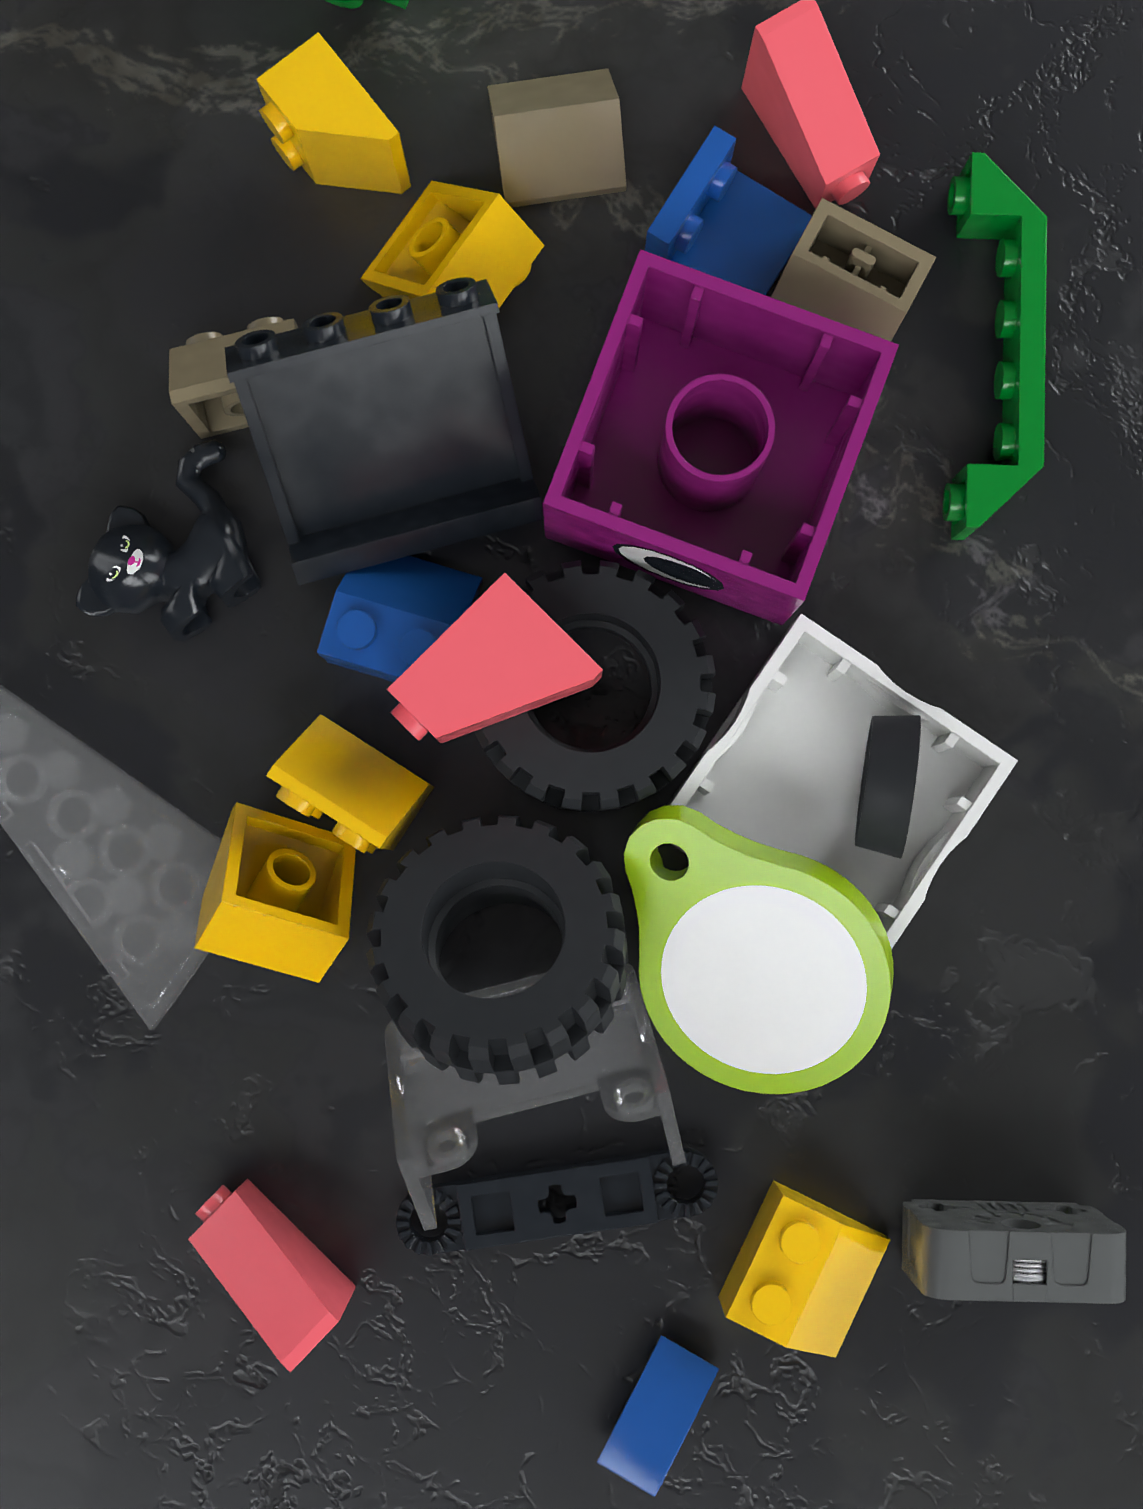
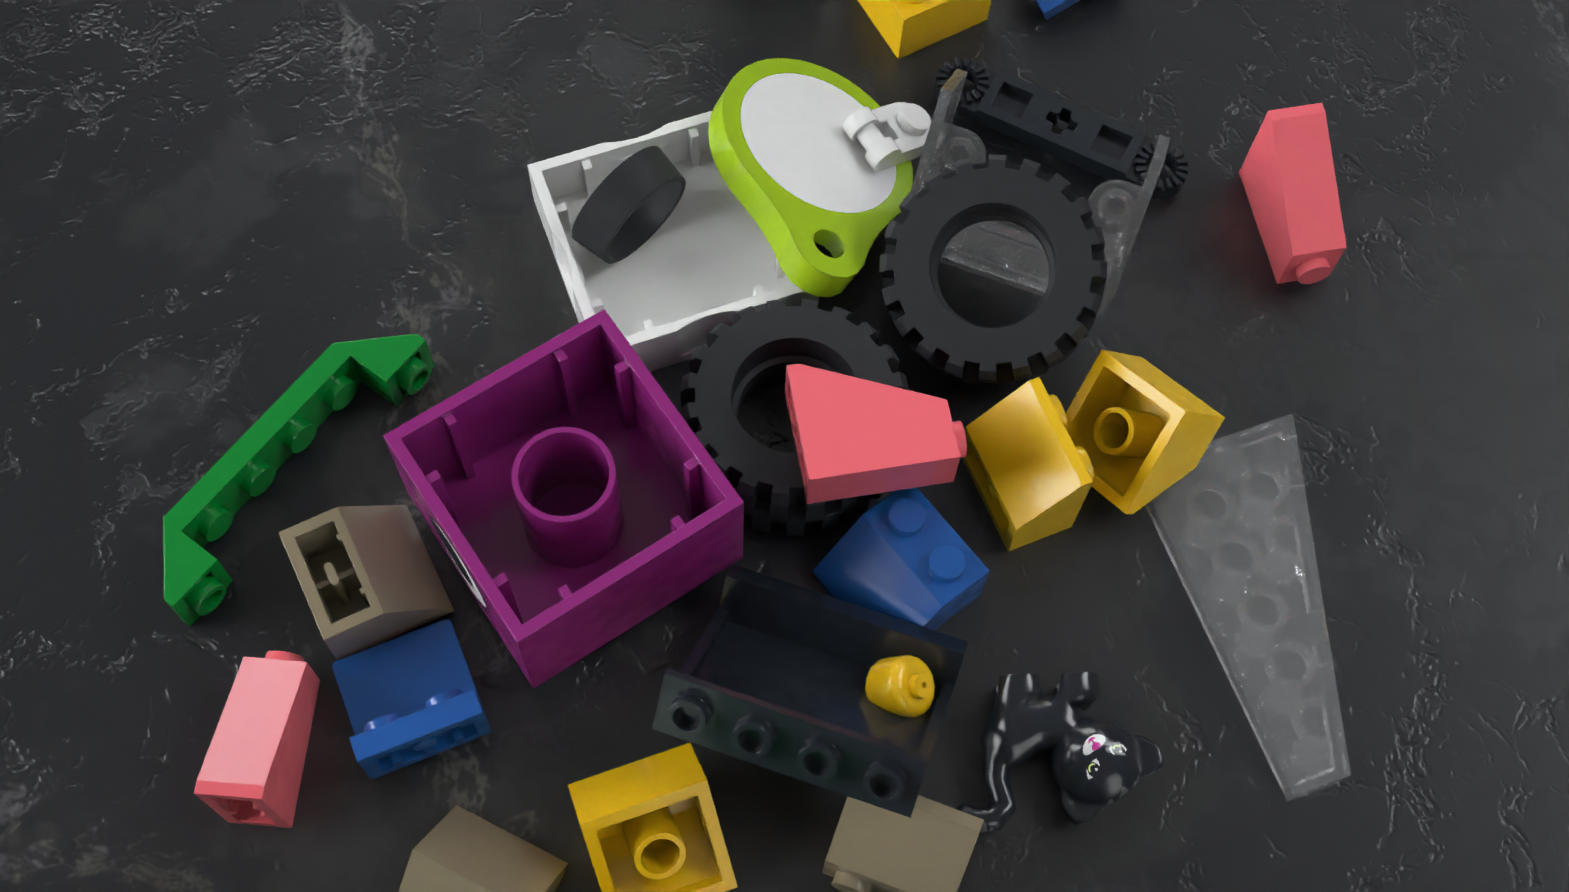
camera: 145 degrees left, 20 degrees down
(327, 501) = (901, 685): none -> yellow piece
(702, 1071) = (889, 133): none -> white plate

